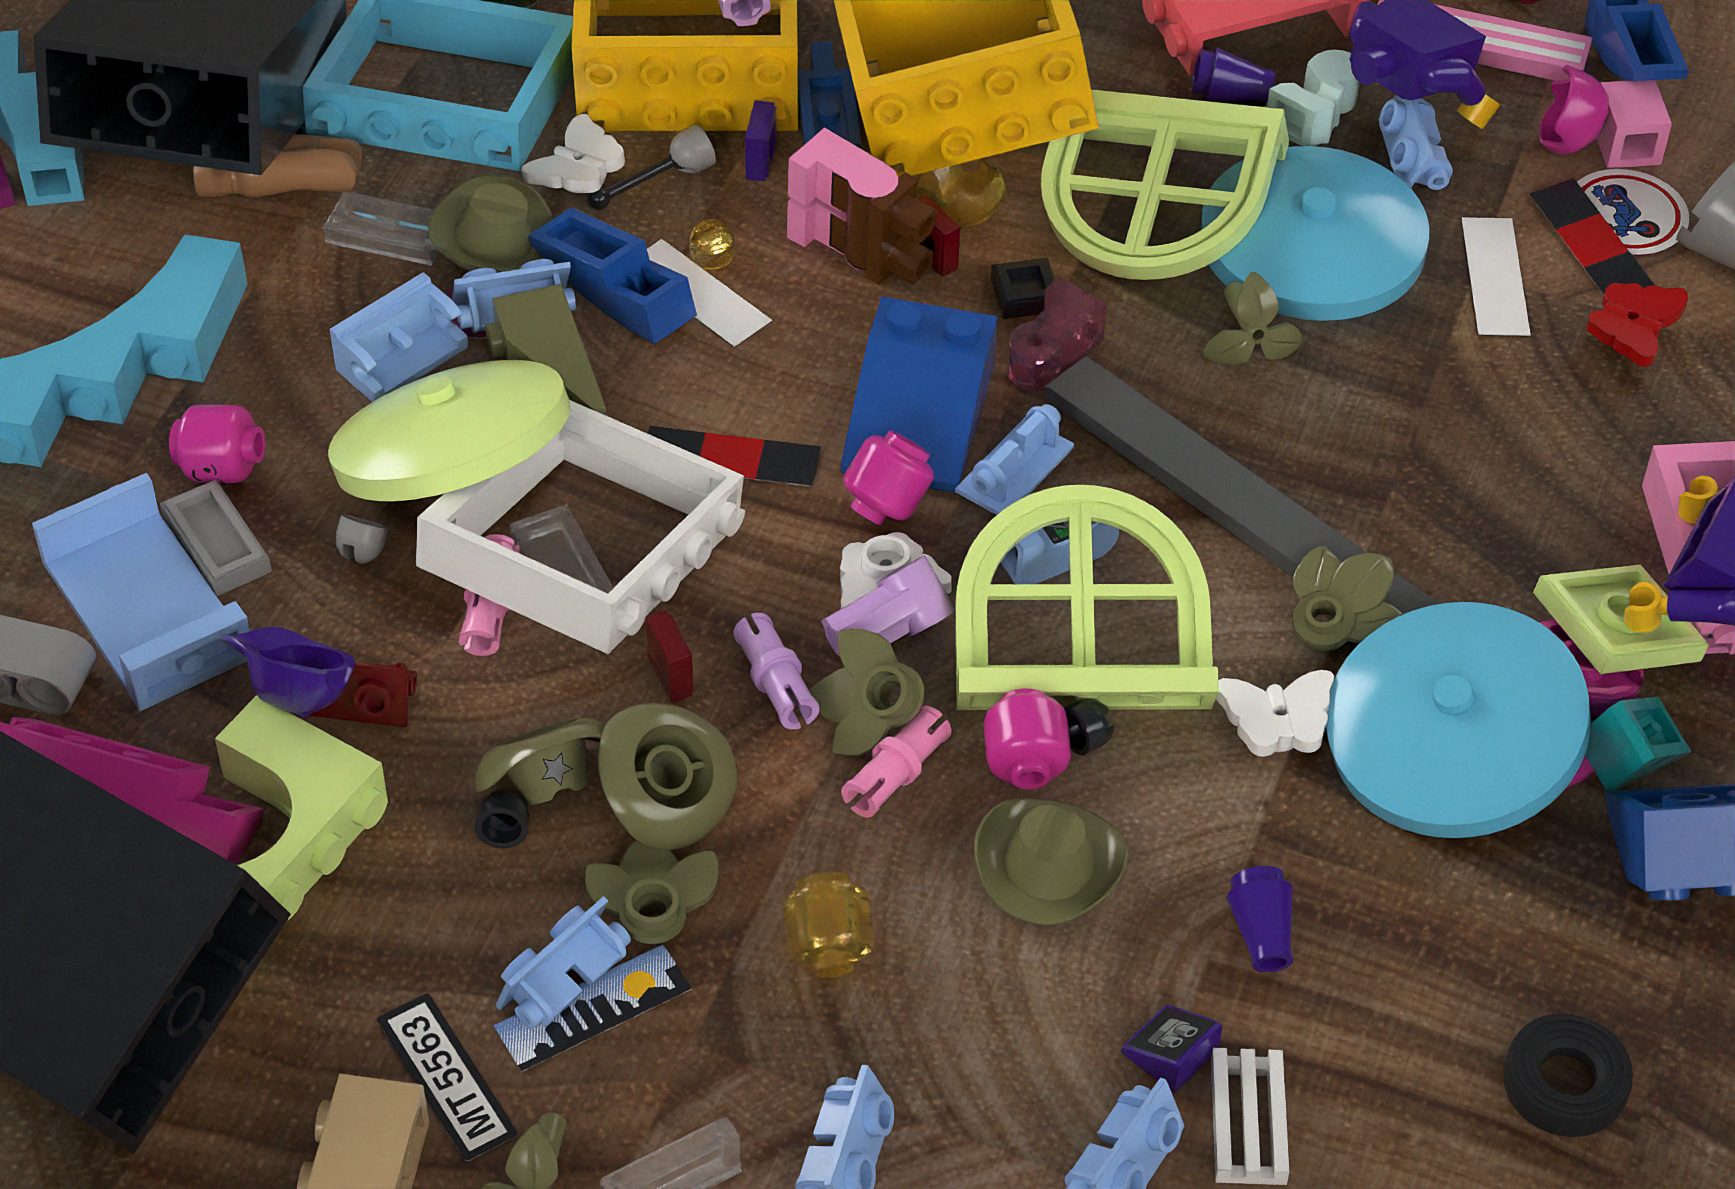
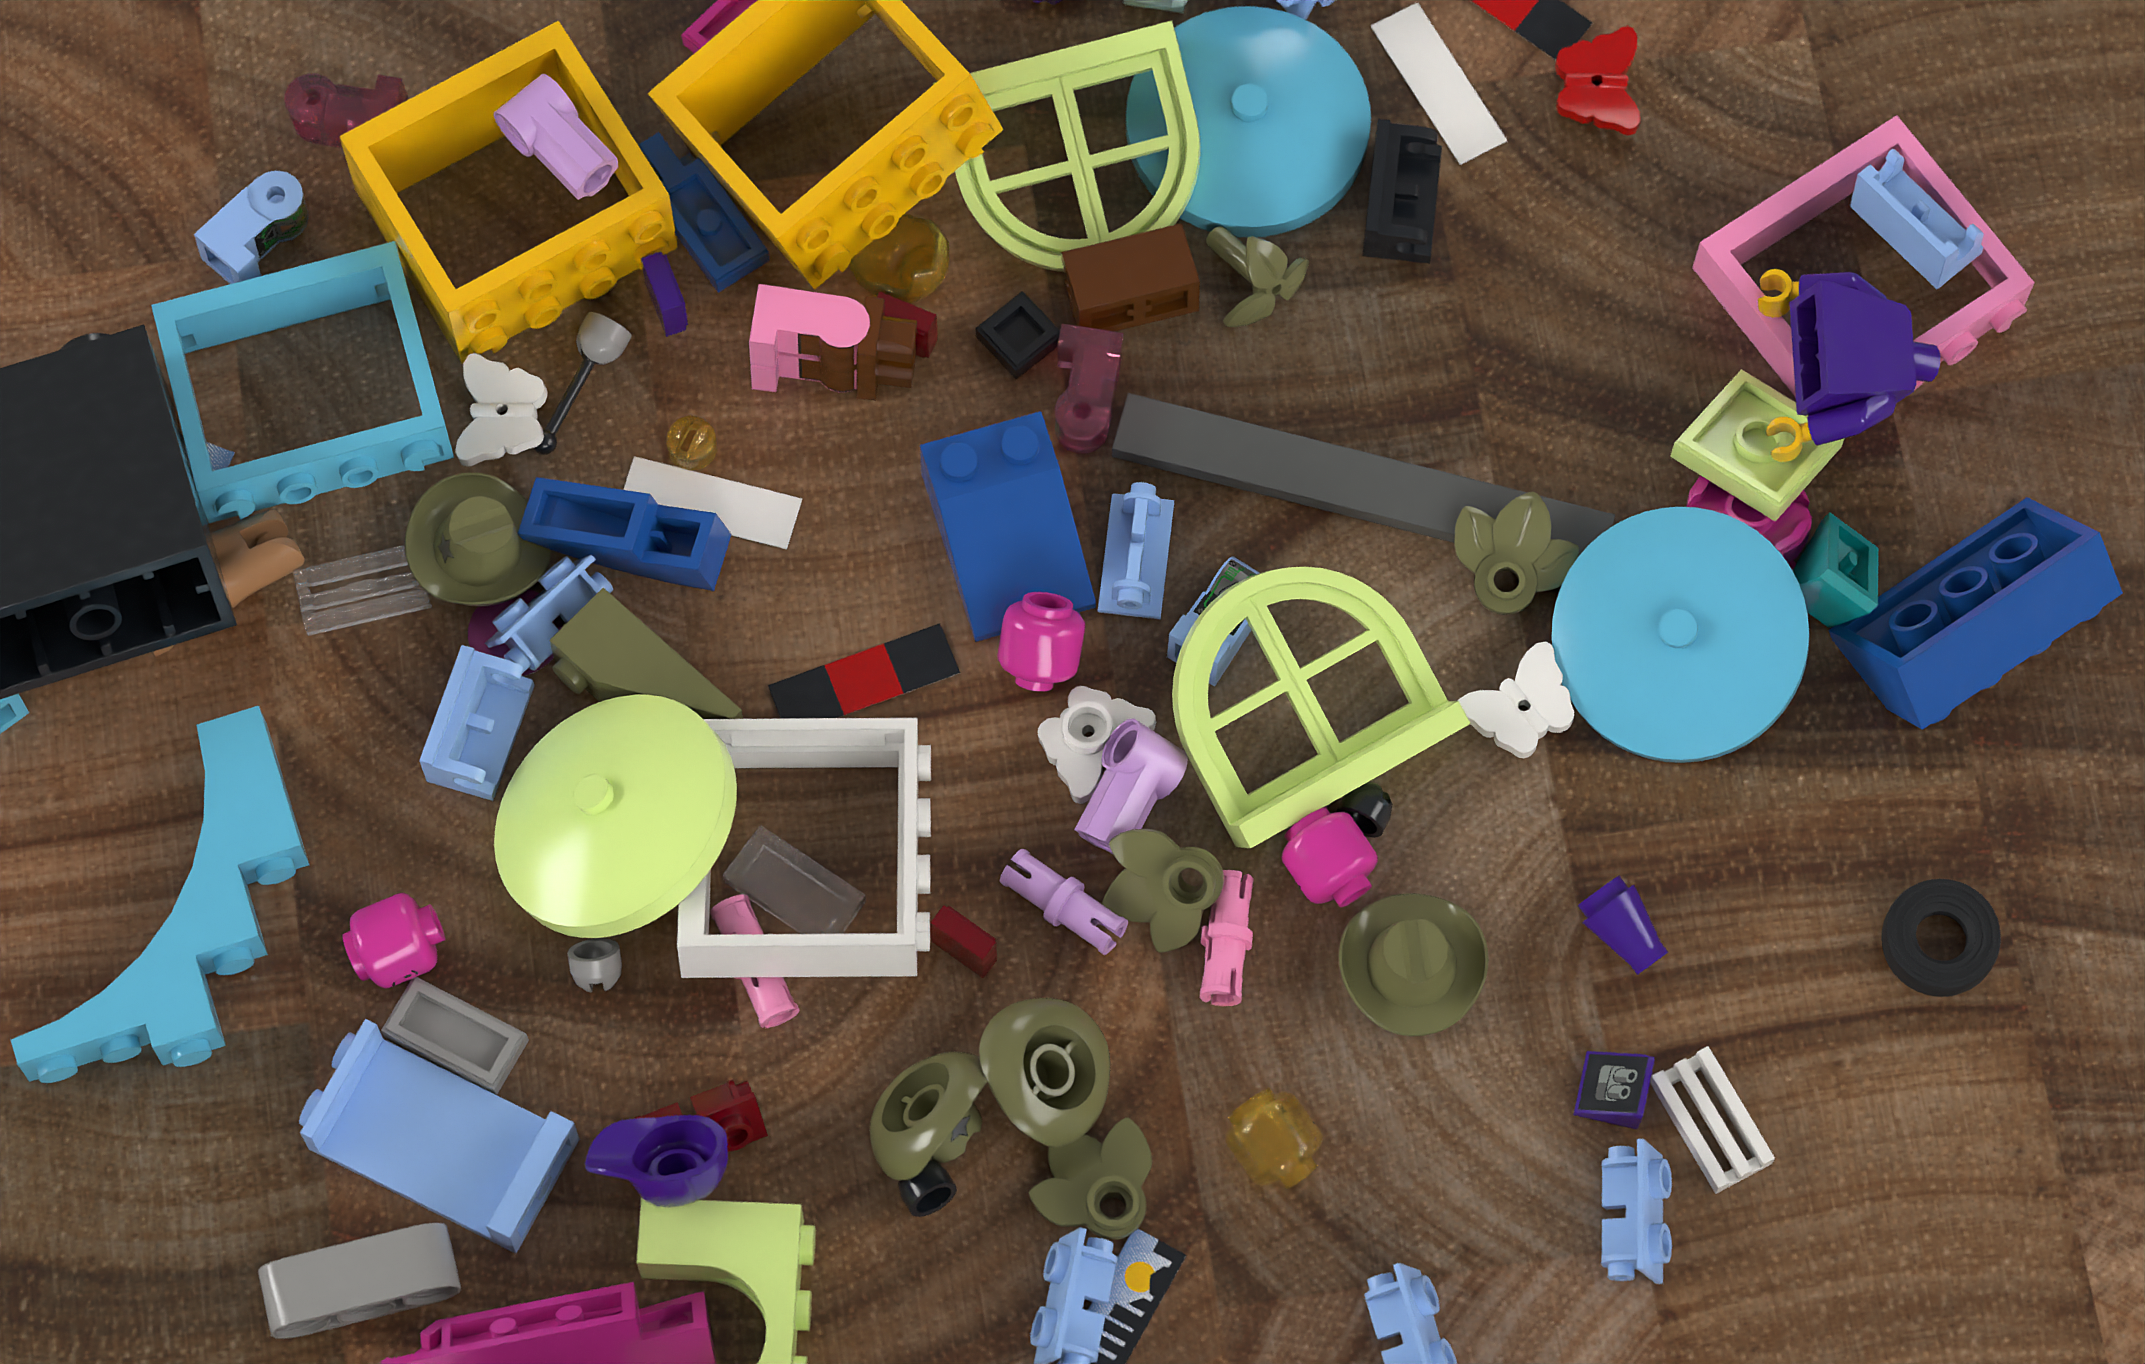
camera: 30 degrees left, 20 degrees up
(1143, 283) = (1132, 280): none -> reddish brown hinge
(1411, 322) = (1402, 193): none -> black hinge

